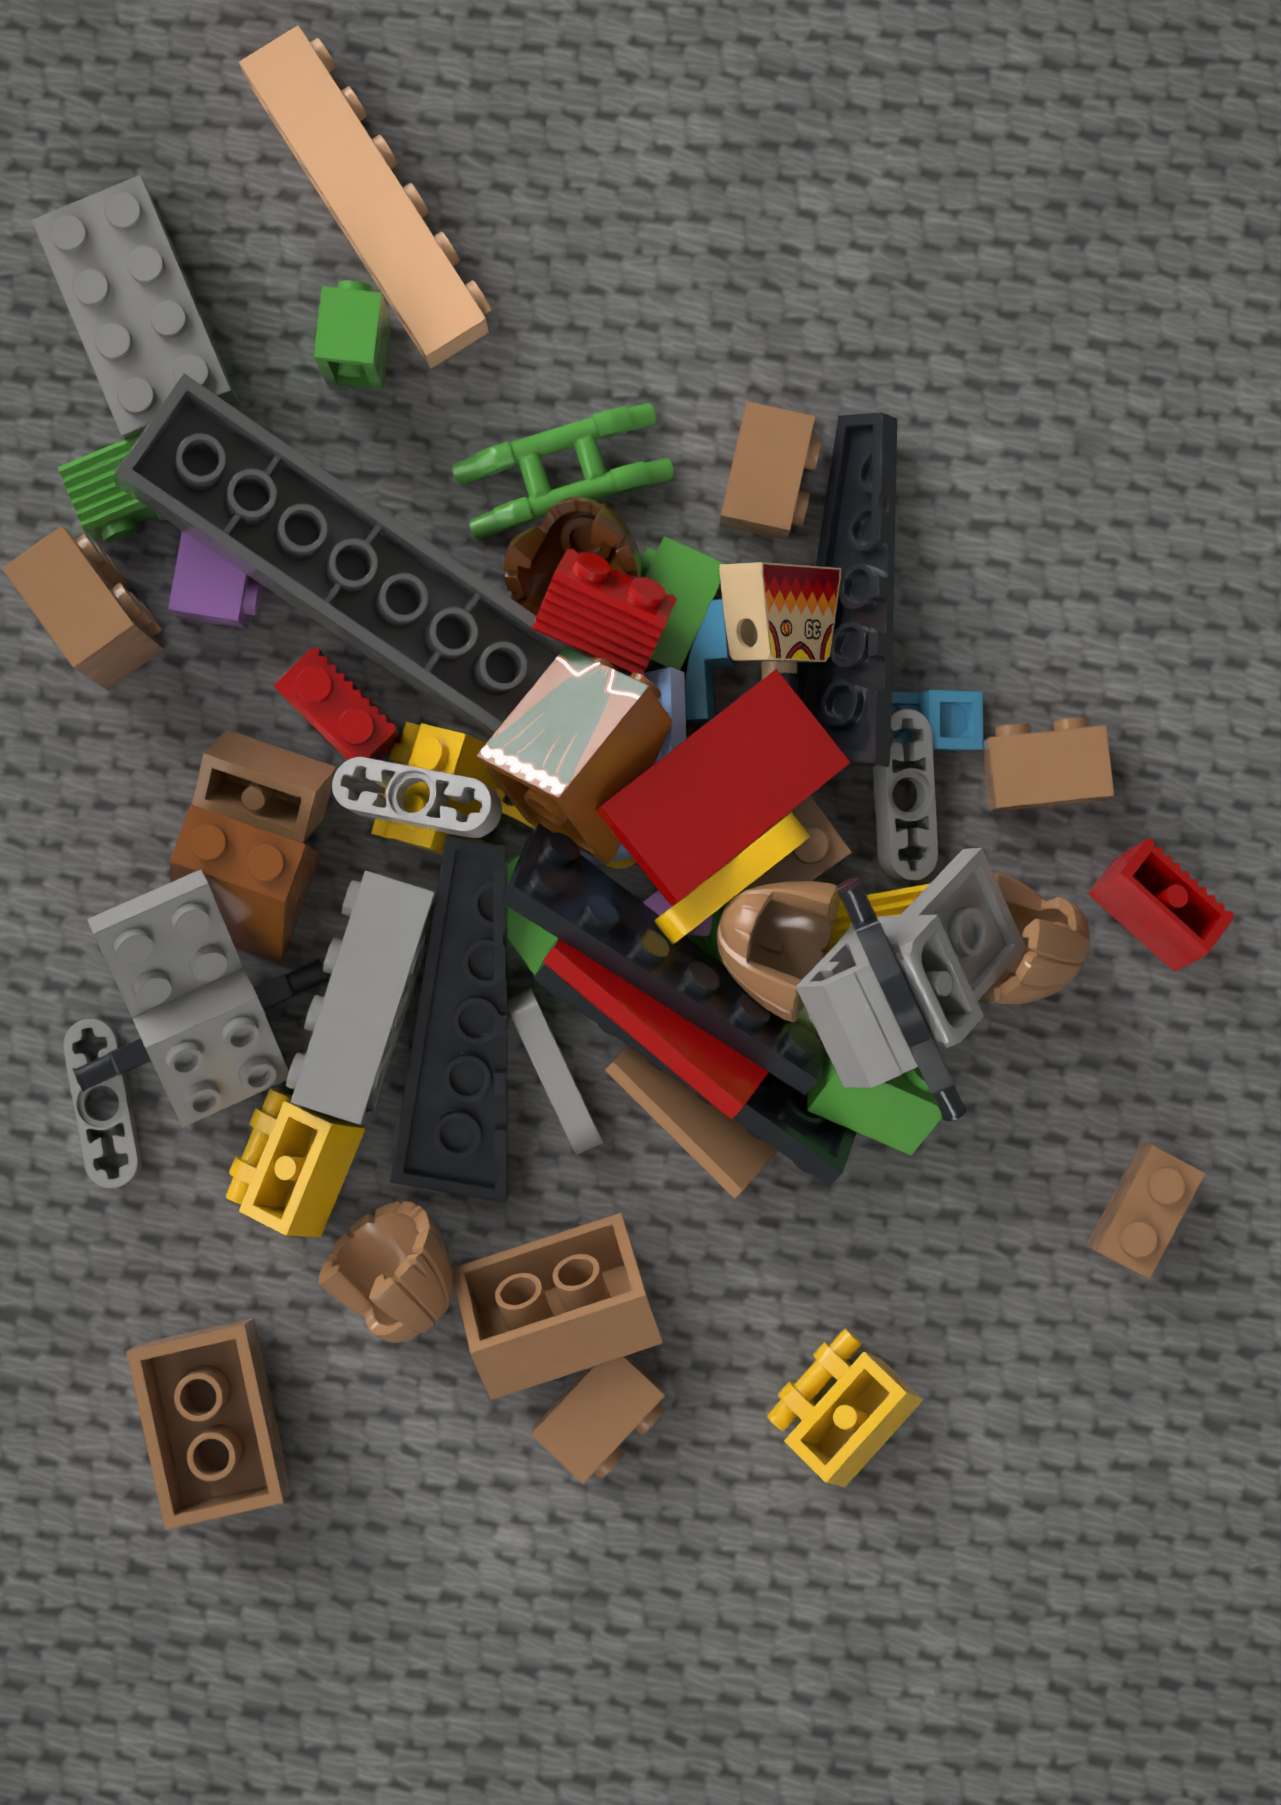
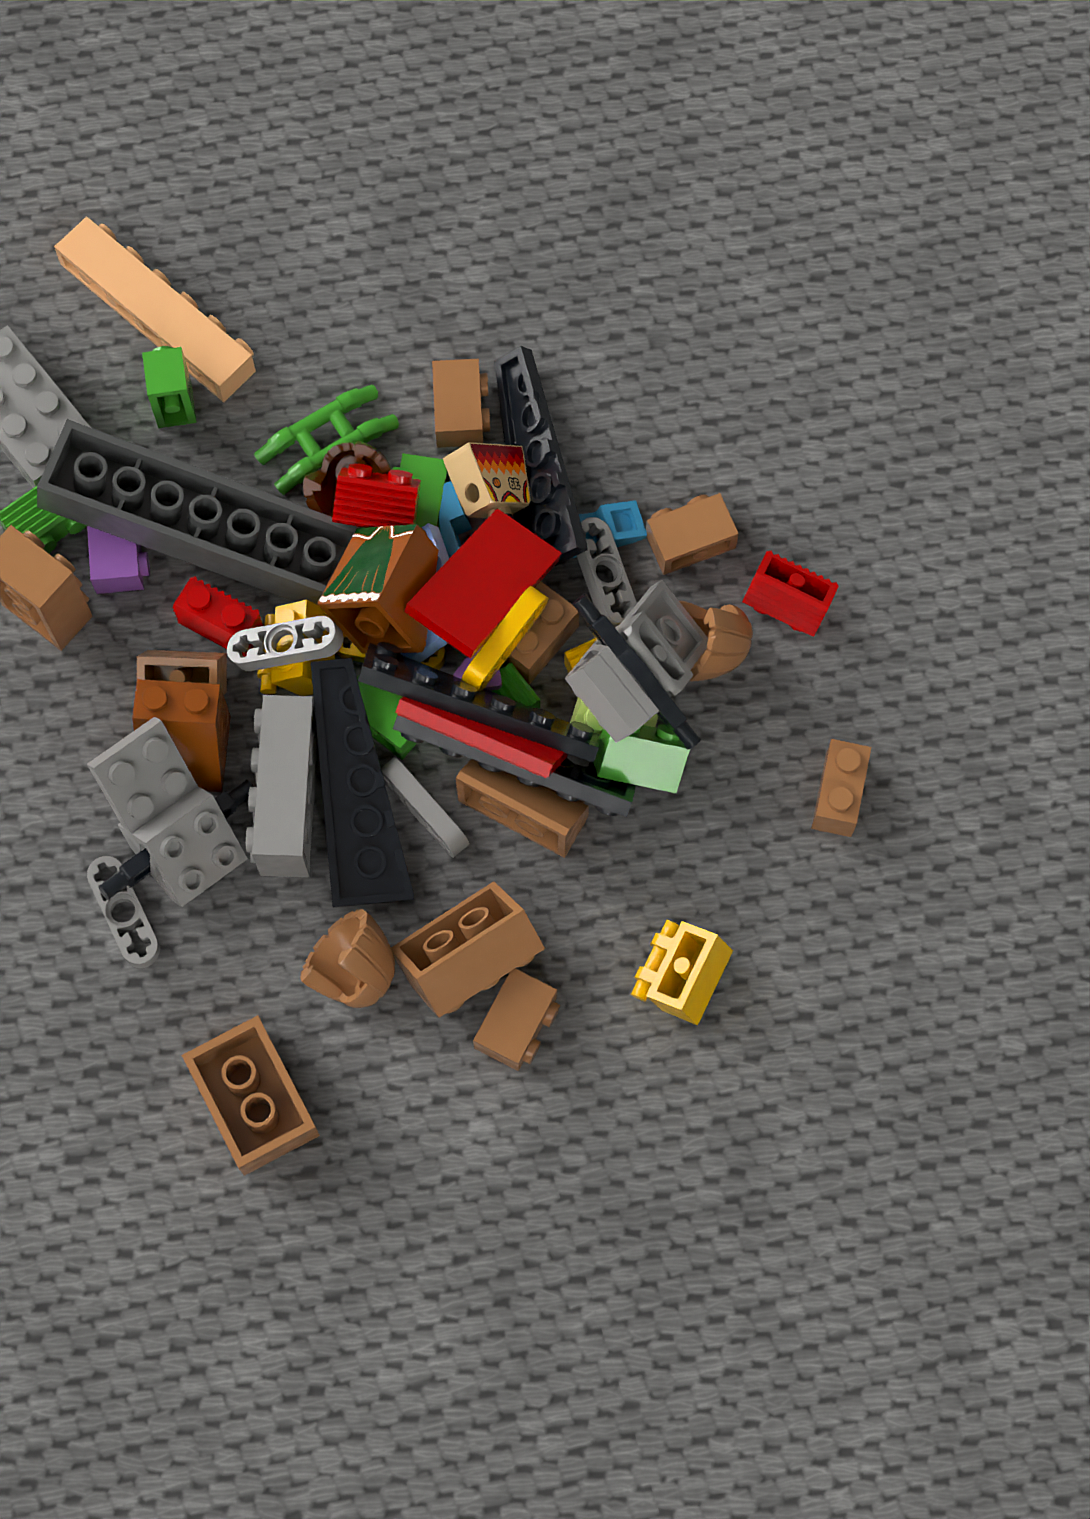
camera: 15 degrees left, 15 degrees down
(293, 1166) = (264, 911): yellow brick -> none
(776, 938) = (539, 664): medium nougat hair -> none

